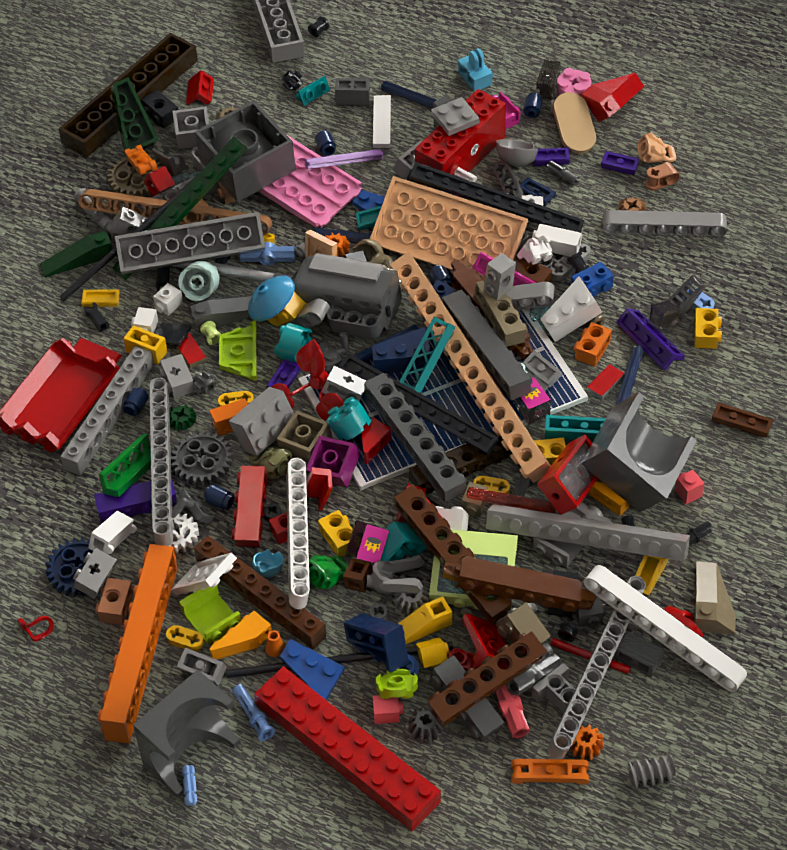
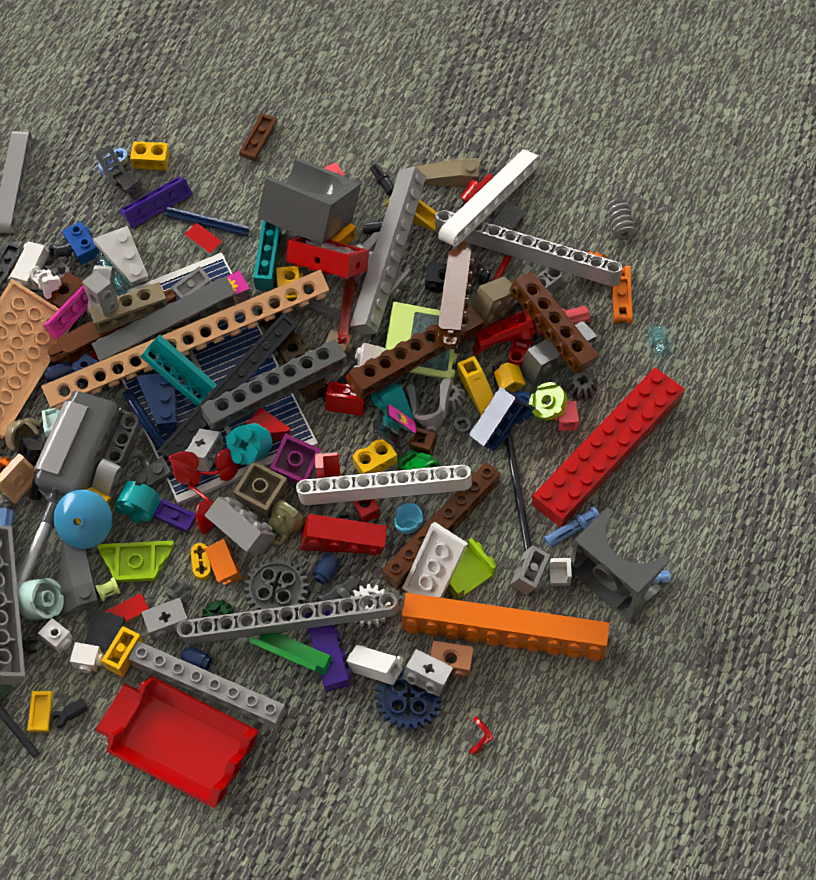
camera: 90 degrees left, 10 degrees up
(185, 637) = (486, 591): yellow beam -> none
(245, 636) = (489, 534): light orange slope -> none
(274, 644) = (501, 510): orange cone -> none
(312, 668) = (525, 477): blue wing -> none
(492, 807) = (658, 338): none -> clear light blue plate
(493, 483) = (317, 332): yellow beam -> none
(592, 344) = (160, 243): orange brick -> none

